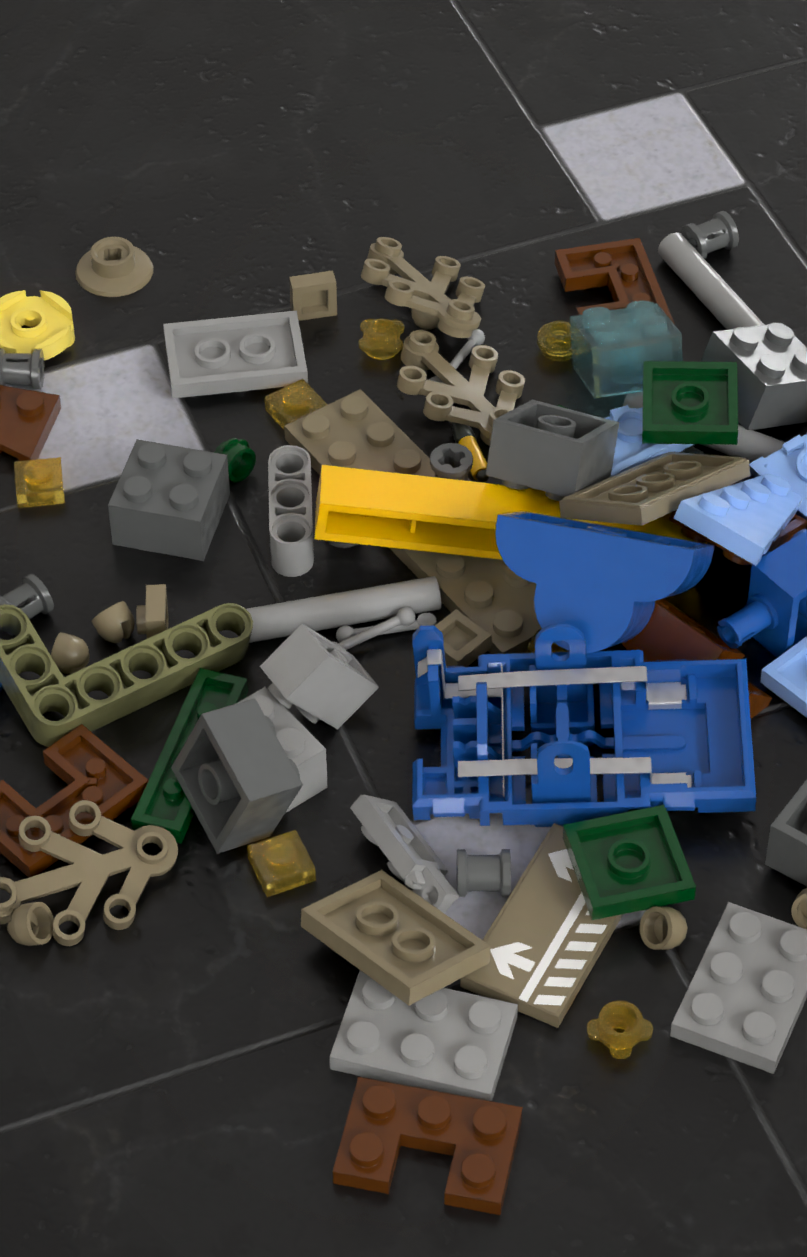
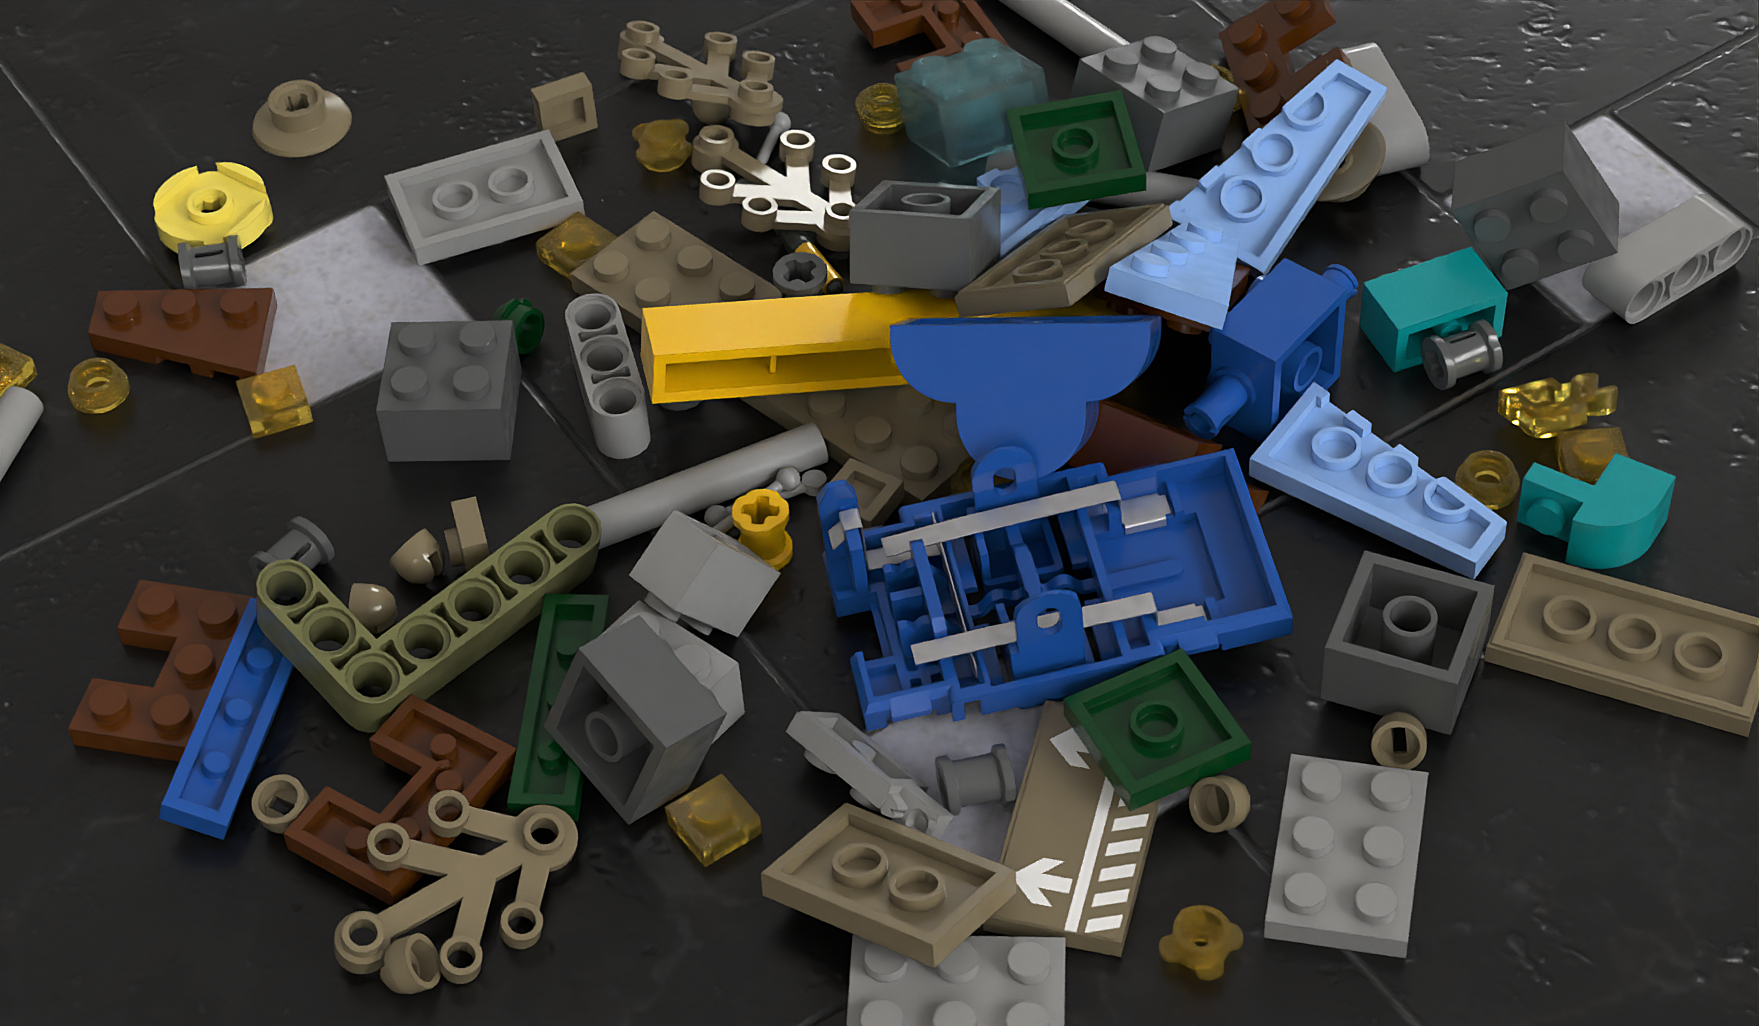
camera: 10 degrees left, 0 degrees up
(375, 650) = (762, 523): none -> yellow bush

